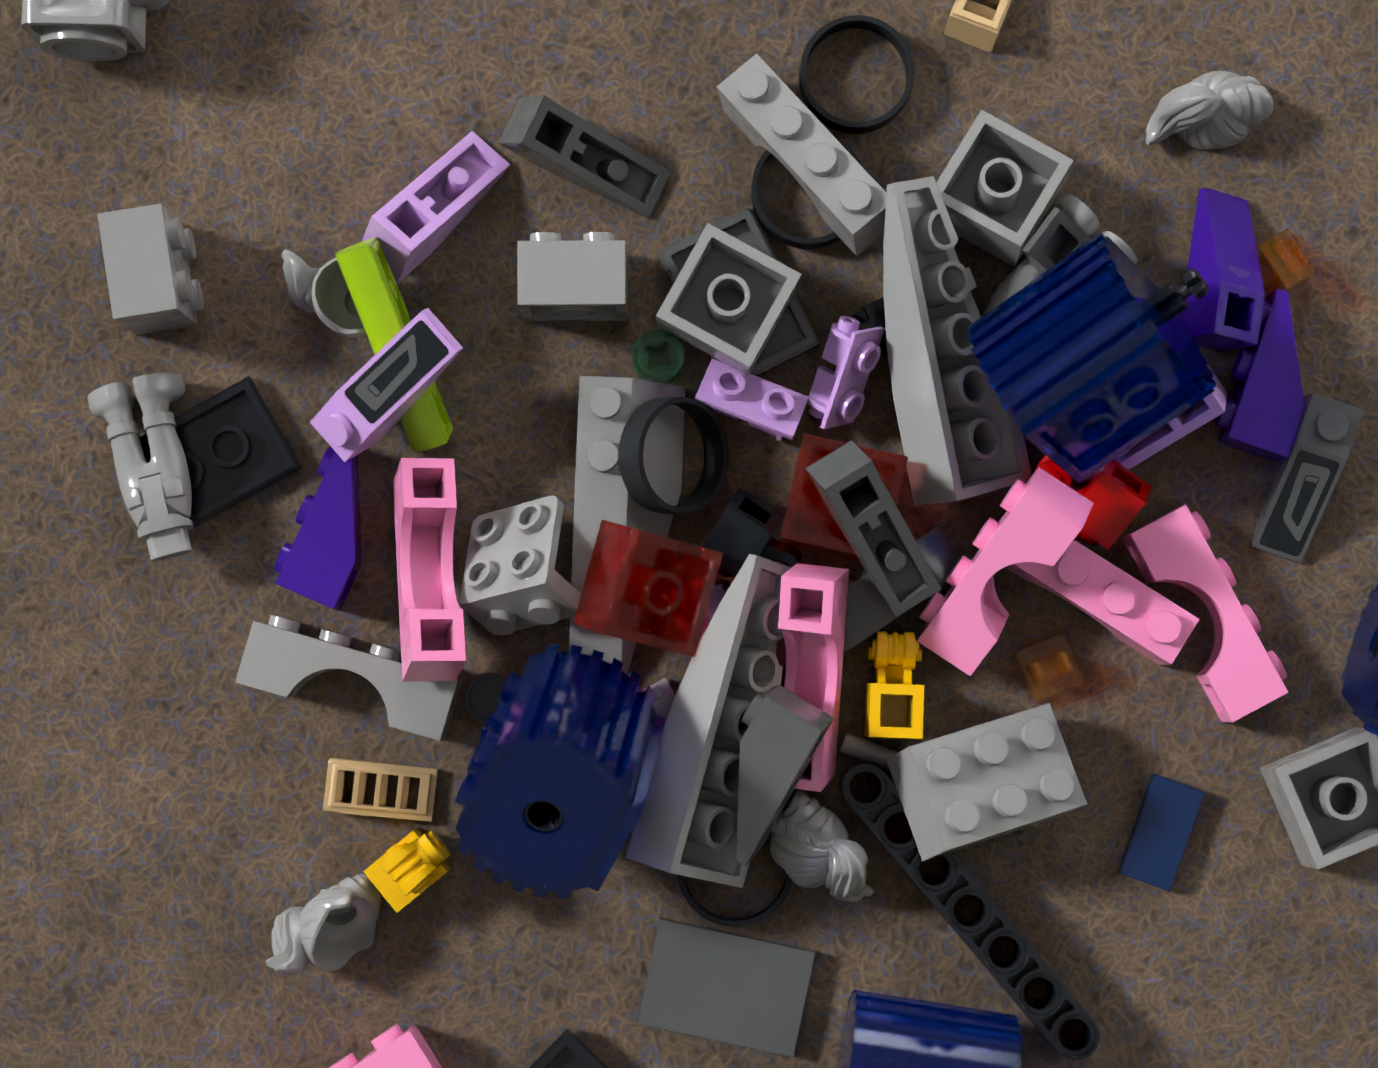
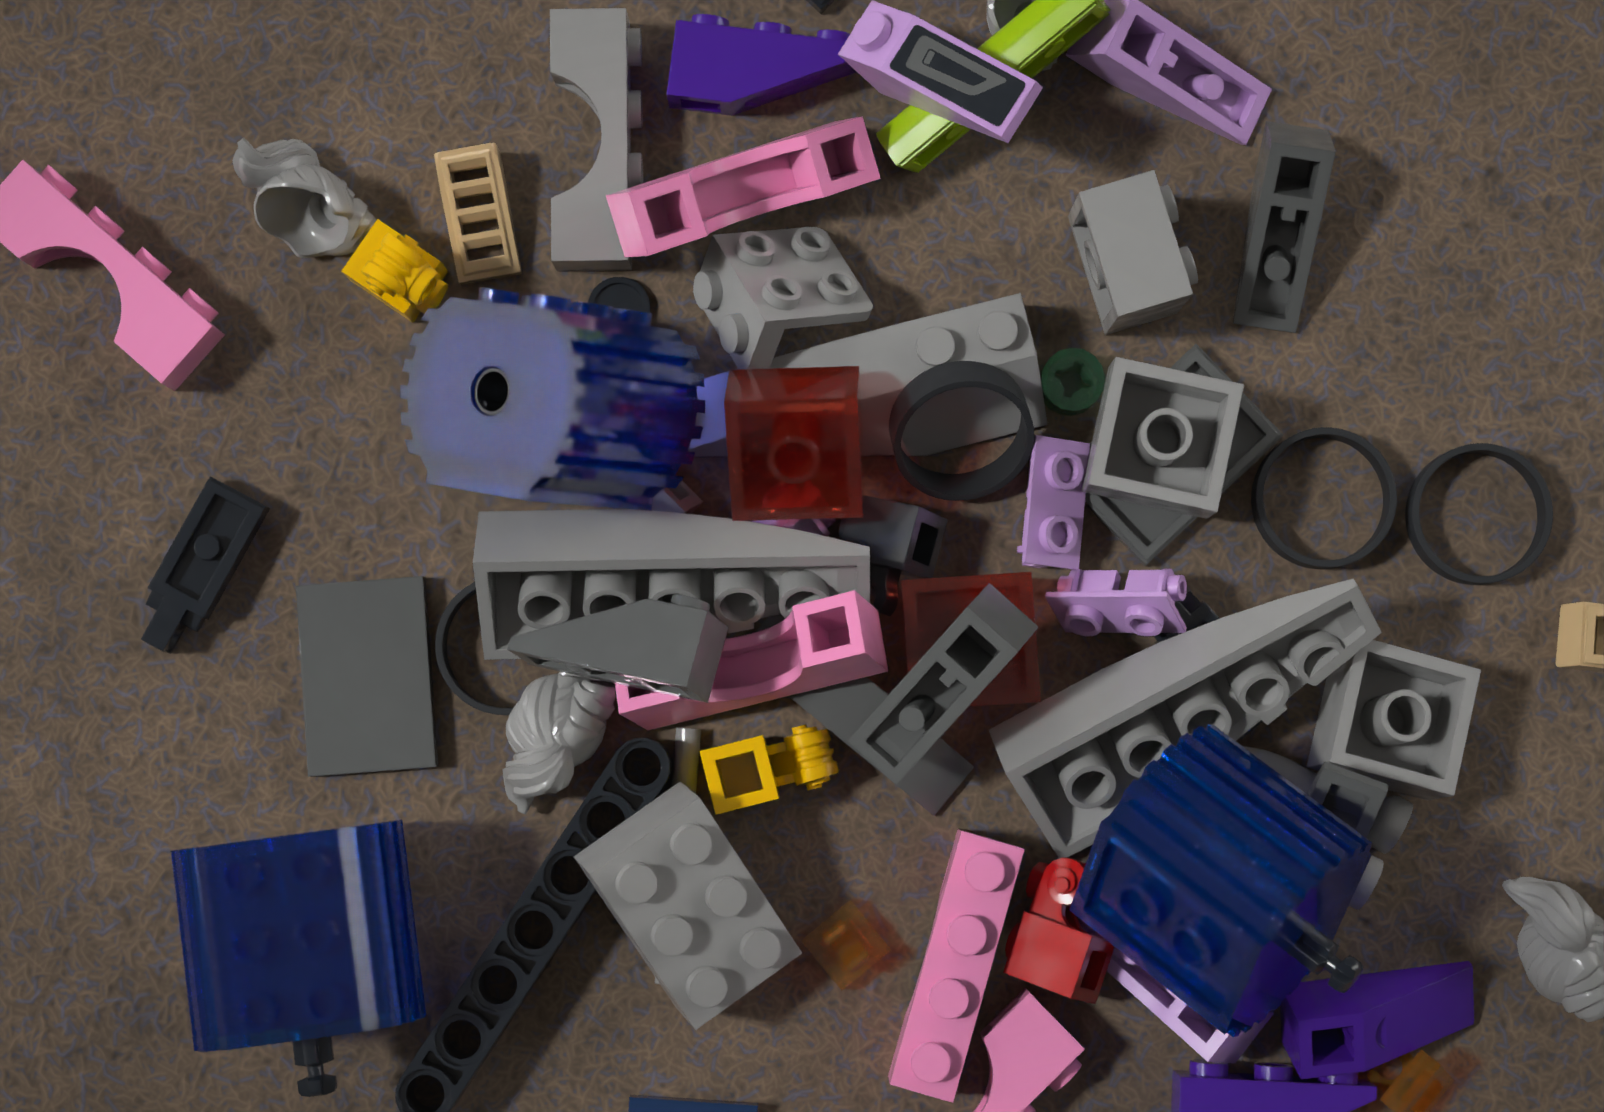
camera: 80 degrees right, 0 degrees up
(827, 172) = (1367, 478): light grey arch -> none
(1037, 529) = (995, 870): bright pink arch -> none

